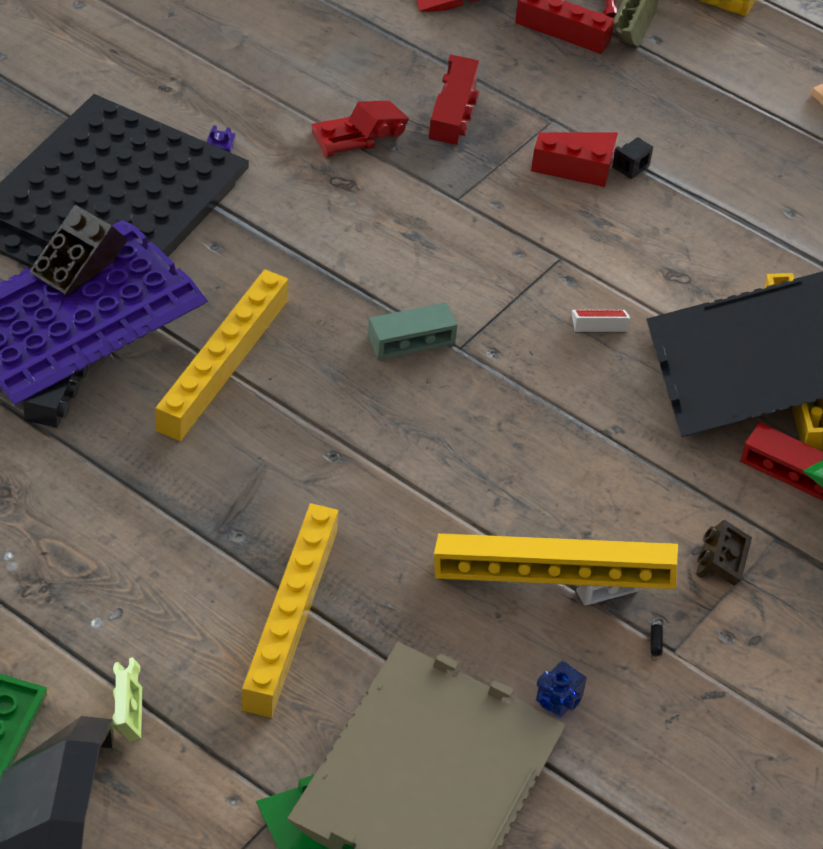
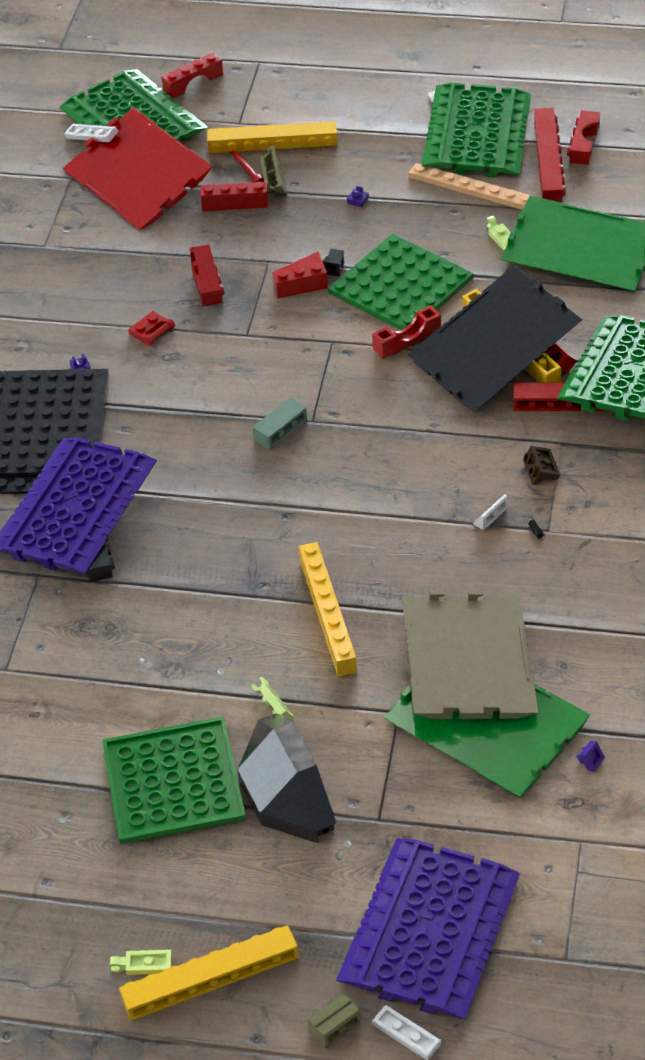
camera: 20 degrees left, 0 degrees up
(78, 251) = (56, 467): dark brown slope -> none
(221, 355) = (180, 488): yellow brick -> none
(378, 119) = (170, 307): red brick -> none
(556, 561) = (457, 511): yellow brick -> none
(560, 689) = (505, 578): clear blue brick -> none
(600, 320) = (381, 367): white slope -> none
(631, 291) = (422, 326): none -> red arch
(704, 224) = (400, 281): none -> green plate
(725, 90) = (358, 197): none -> dark purple tile

